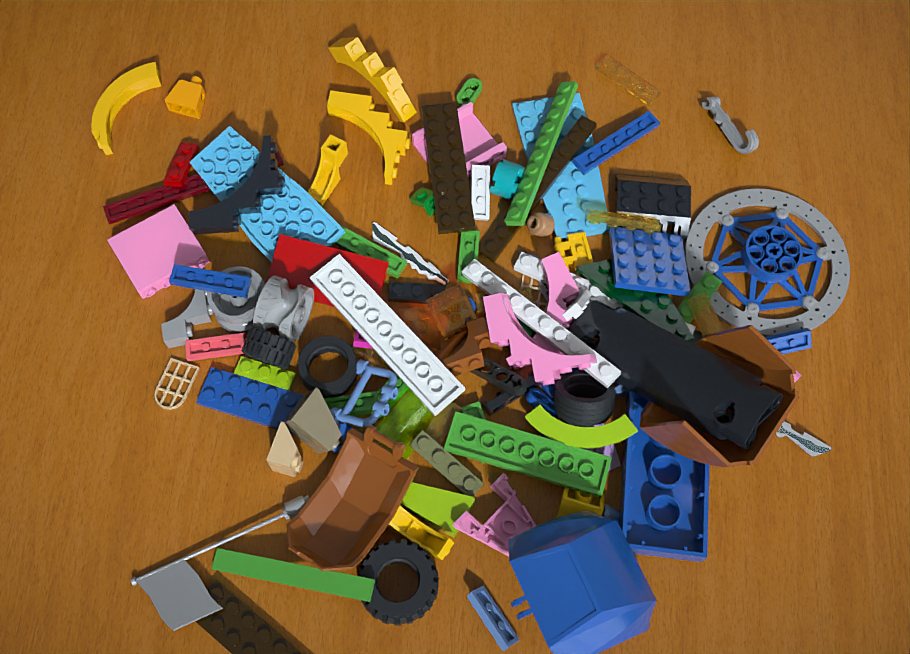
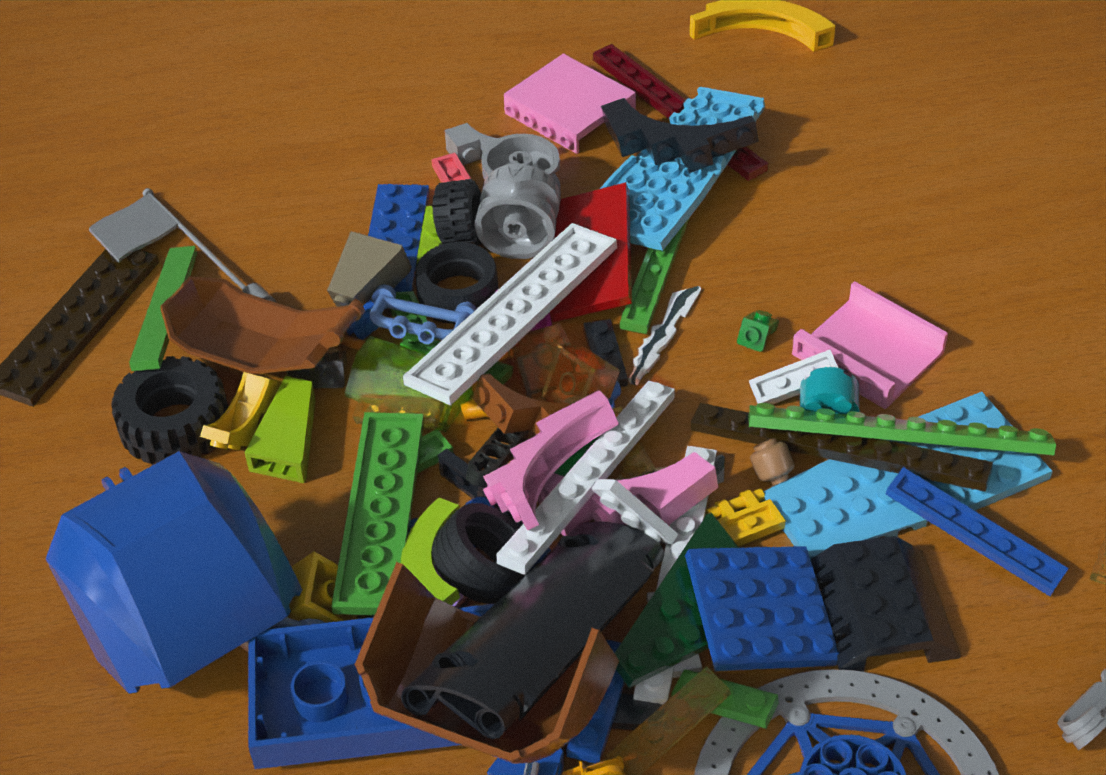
camera: 80 degrees right, 20 degrees down
(172, 376) = (373, 158): tan window -> none
(181, 164) = (687, 87): red plate -> none
(187, 98) = (803, 71): light orange torso -> none
(210, 281) = (524, 128): blue plate -> none
(284, 454) = (317, 262): tan slope -> none
(328, 175) = (742, 217): yellow arch -> none
(362, 112) = (854, 253): yellow arch -> none
(384, 79) = (923, 221): yellow arch -> none
(446, 464) = (346, 432): olive plate -> none
(448, 168) = (814, 327): dark brown plate -> none
(466, 92) = (972, 338): bright green plate -> none
(468, 252) = (697, 390): bright green plate -> none
(503, 525) = (284, 513): bright pink wing -> none
(628, 221) = (818, 553): clear yellow plate -> none

